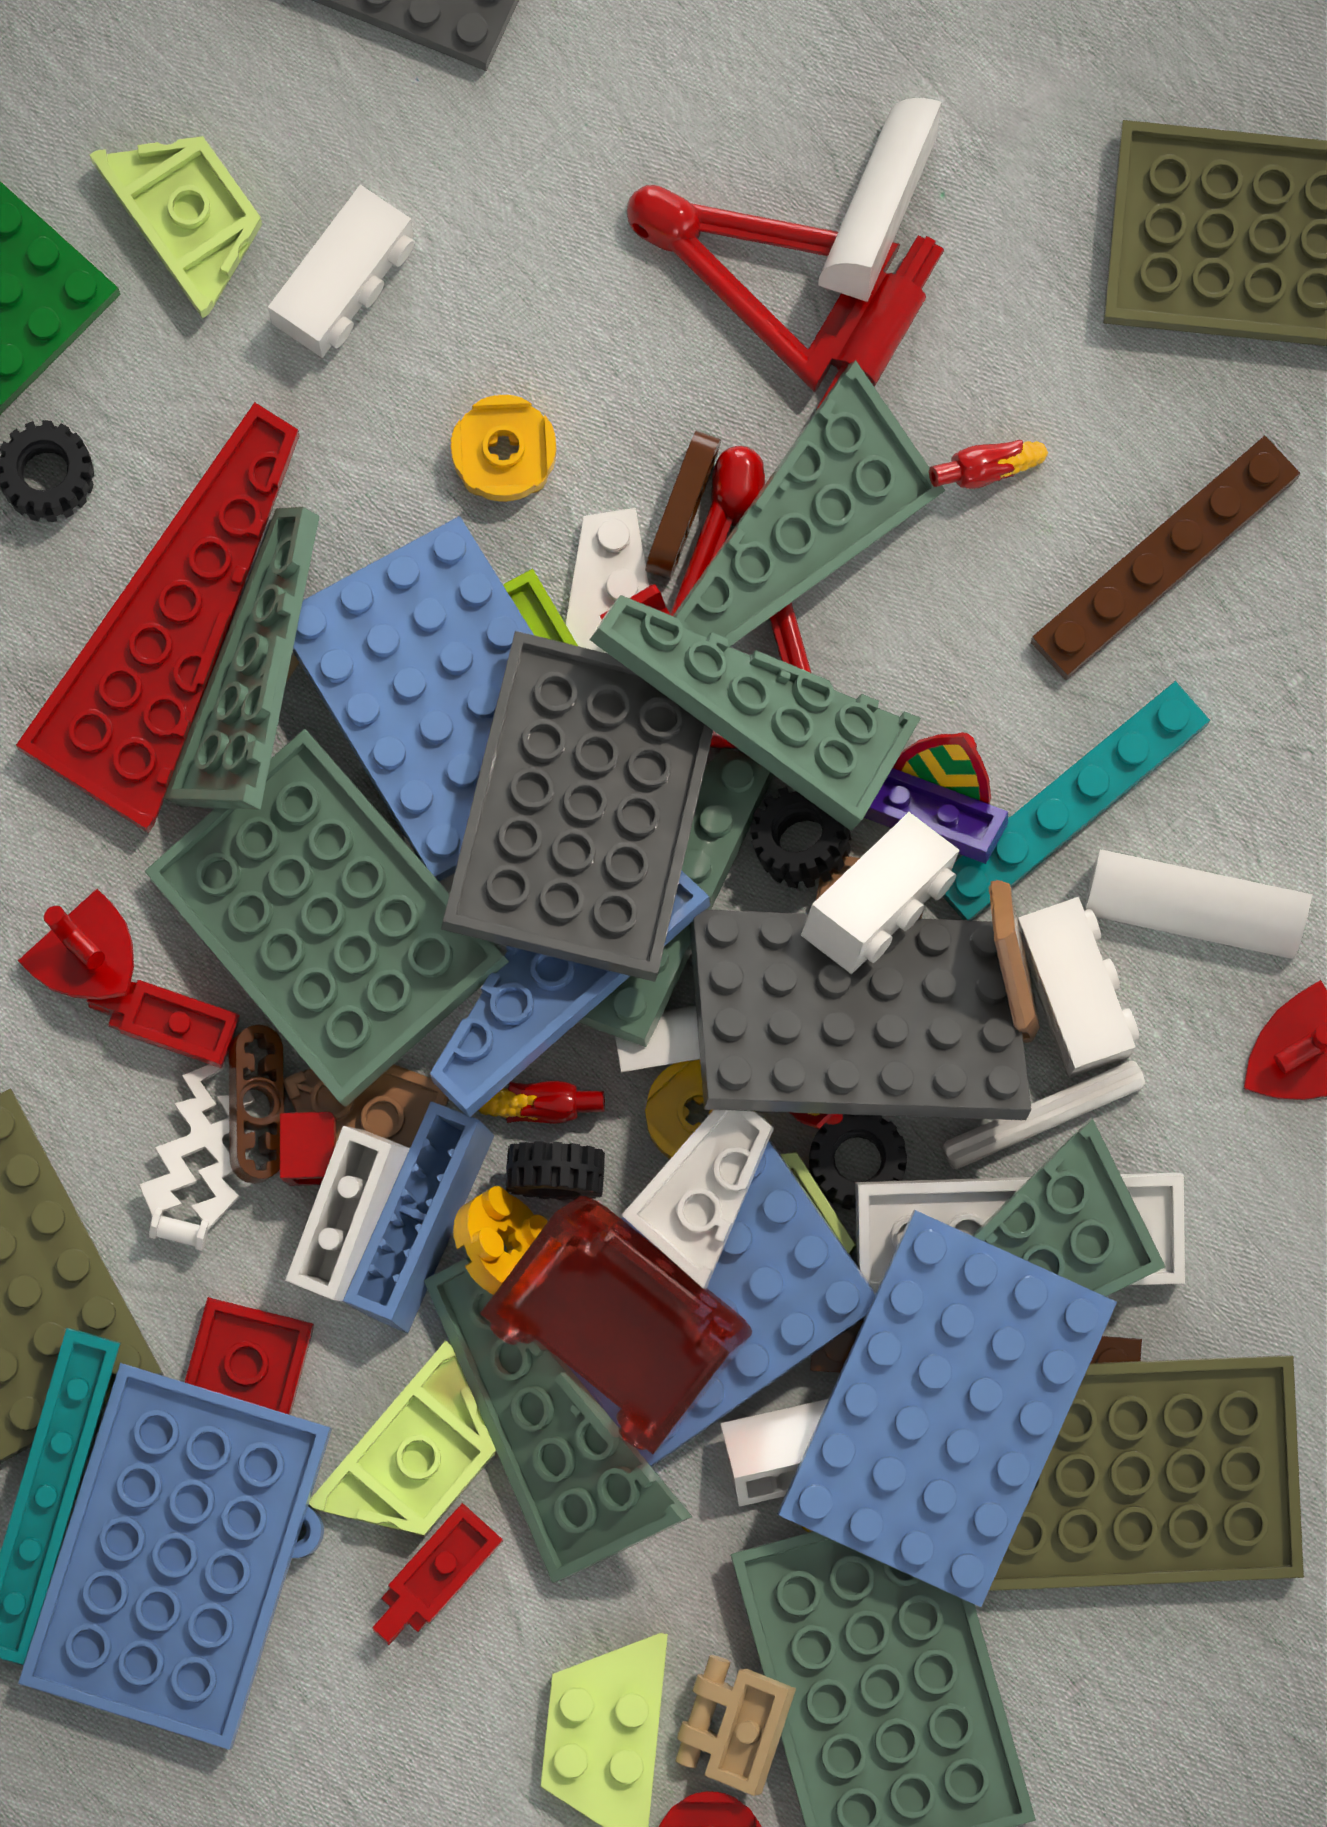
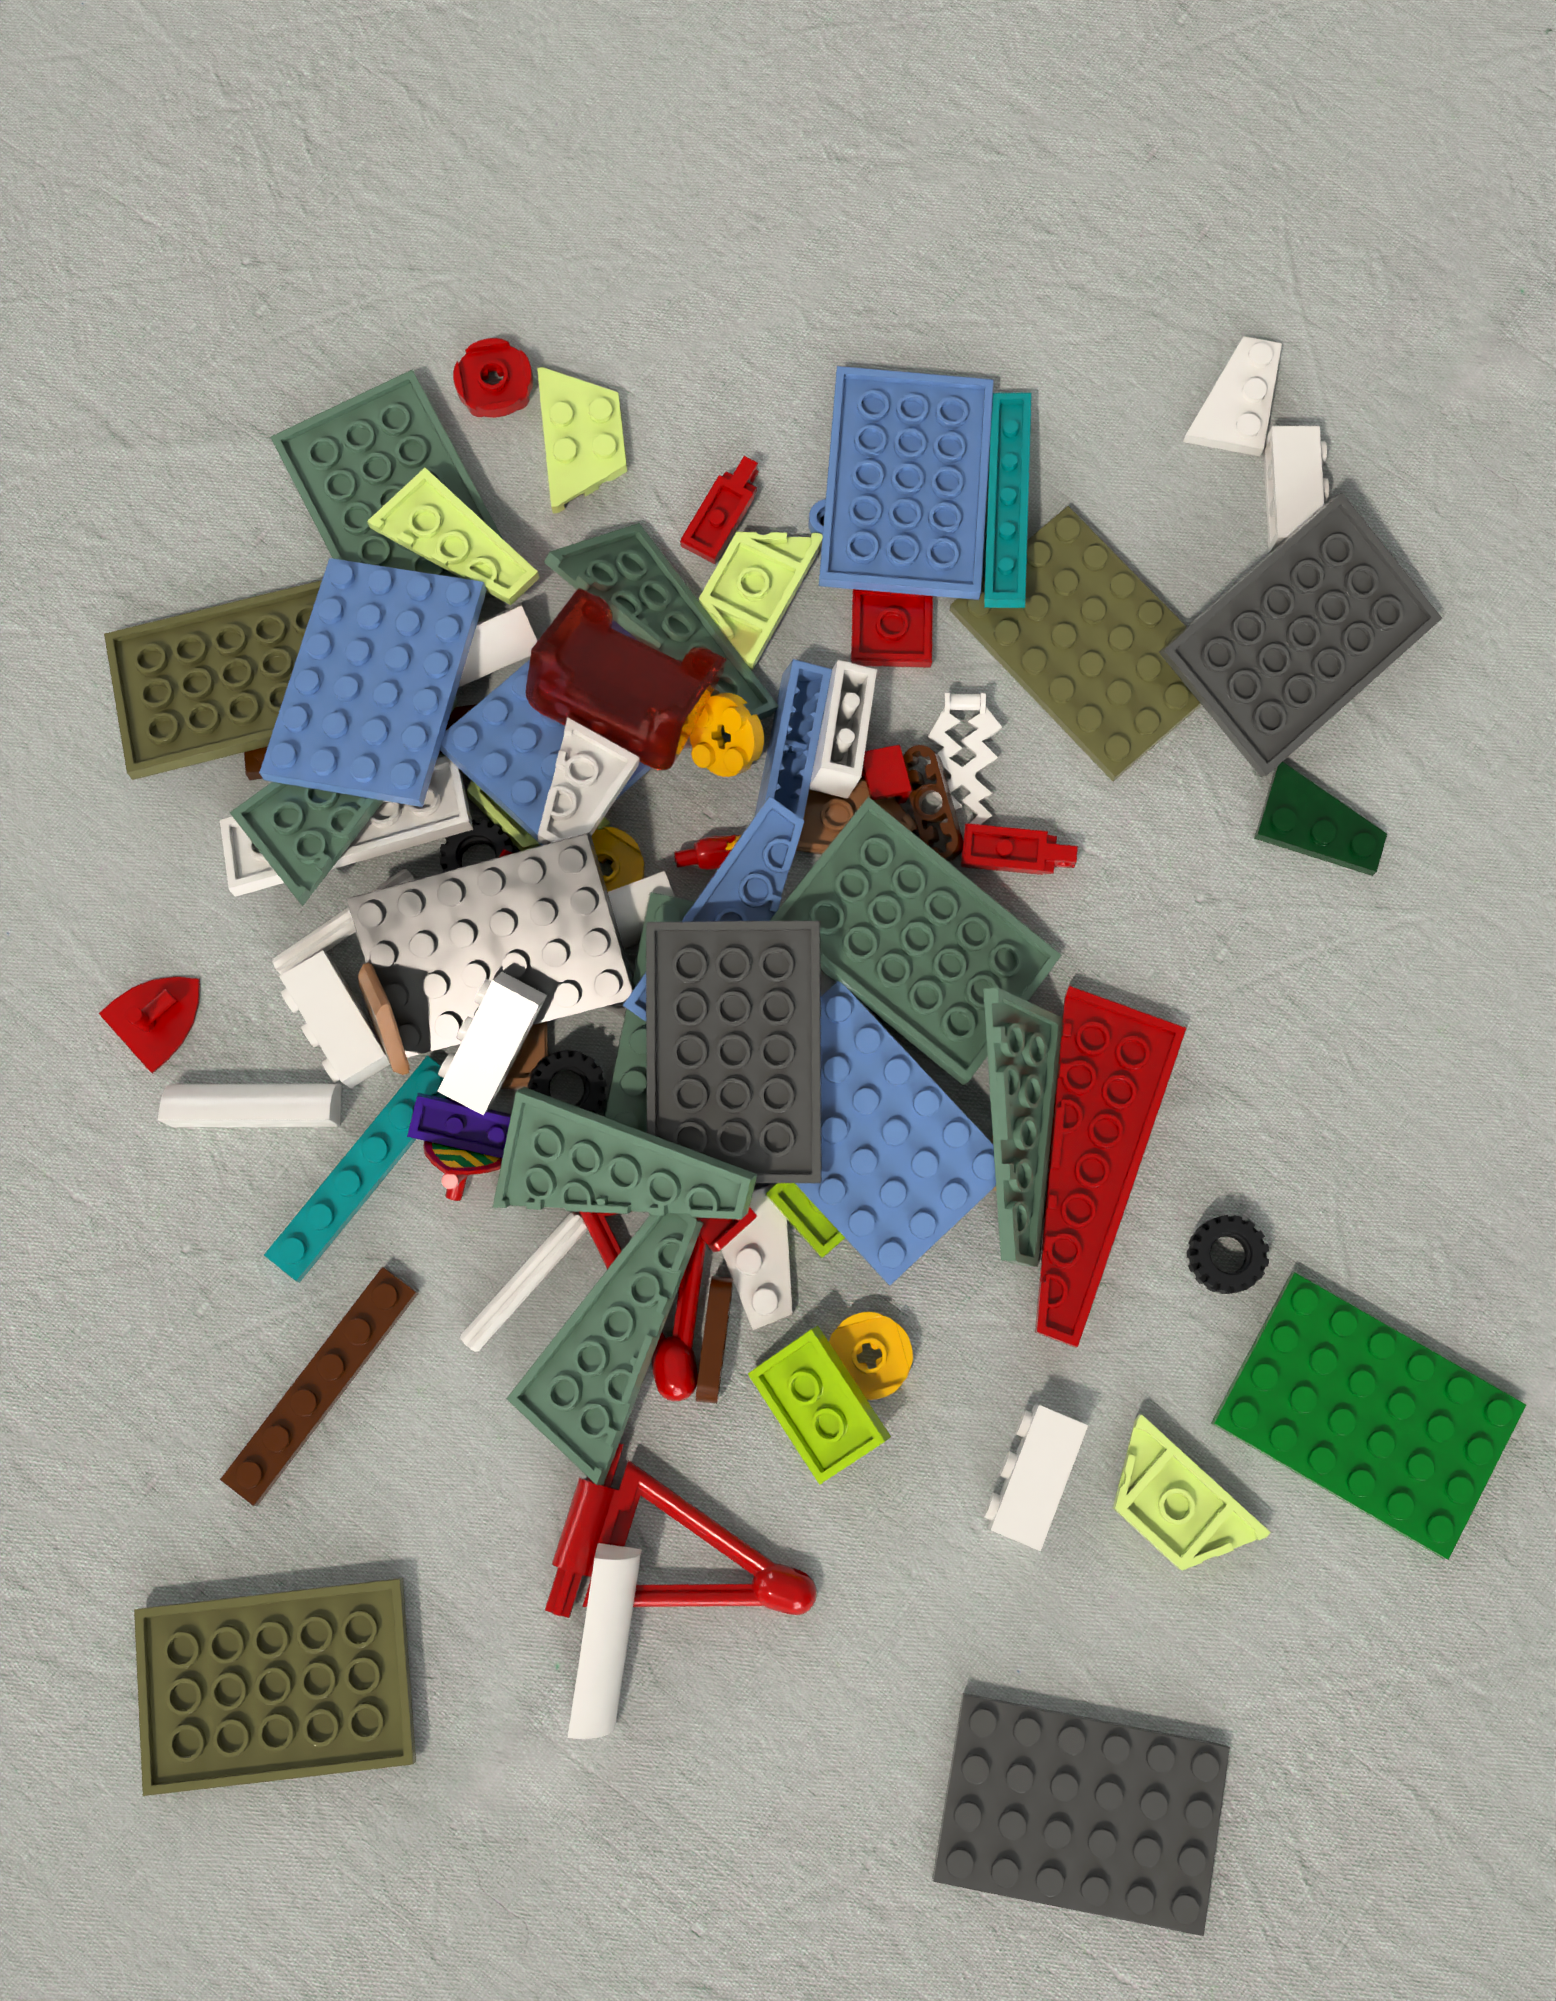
camera: 170 degrees right, 0 degrees up
(84, 952) = (1088, 885): red shield -> none
(554, 1170) = (698, 793): black tyre -> none
(576, 400) = (819, 1405): none -> lime plate
(748, 1731) = (478, 451): tan plate -> none
(815, 1609) = (448, 533): none -> yellowish green wing
(901, 620) = (523, 1282): none -> white axle
(988, 463) = (476, 1428): red piece -> none

